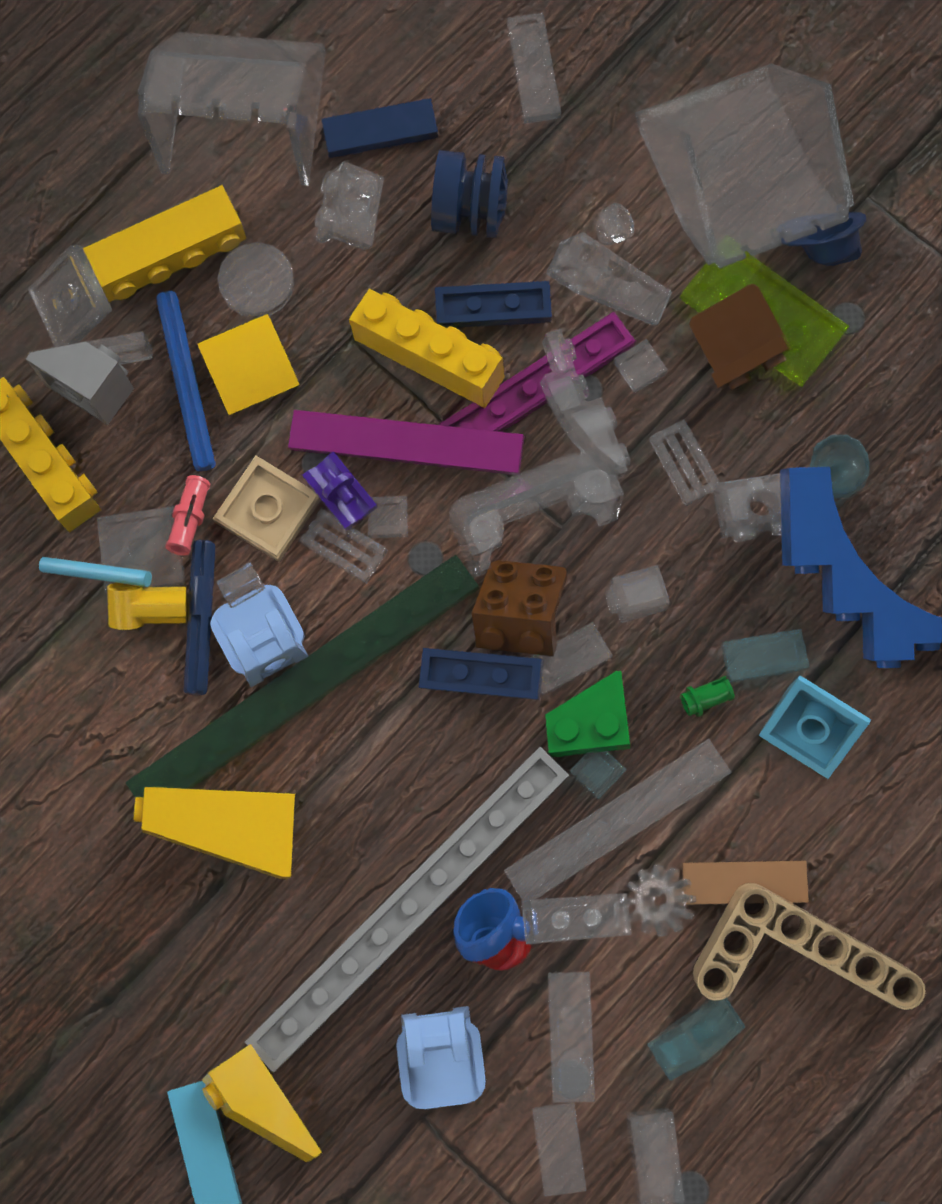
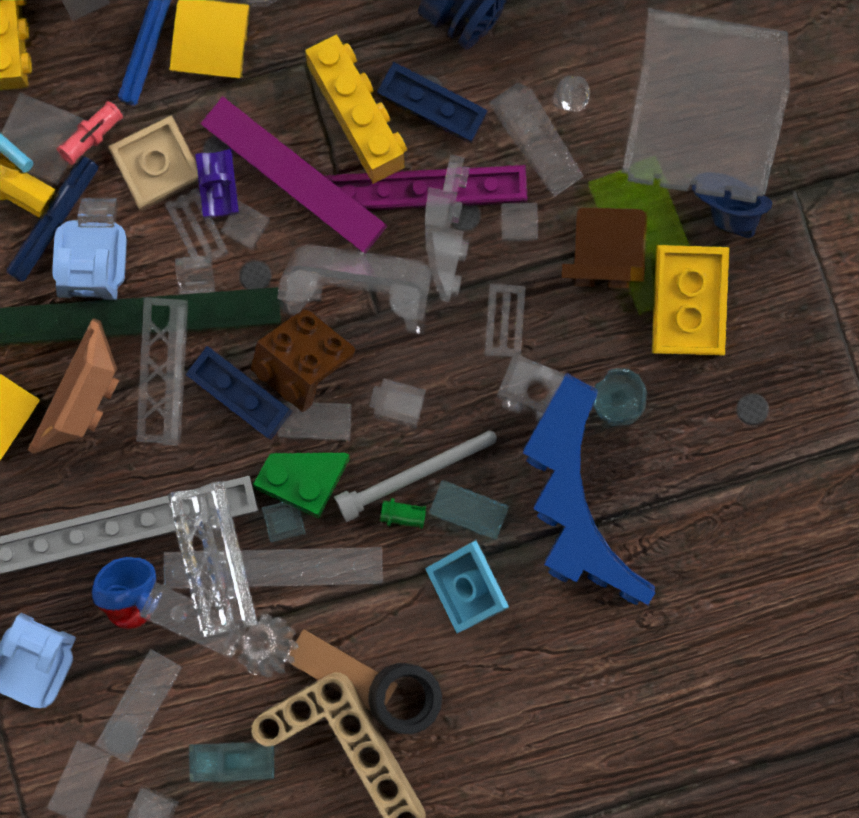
camera: 30 degrees right, 5 degrees up
(328, 765) = (79, 393): none -> nougat wedge
(370, 588) = (195, 275): none -> clear tile
(409, 689) = (175, 371): none -> clear fence
(564, 842) = (219, 559): none -> clear fence
(653, 715) = (352, 503): none -> light grey piece
(843, 343) = (690, 300): none -> yellow tile
(851, 865) = (431, 705): none -> black tyre

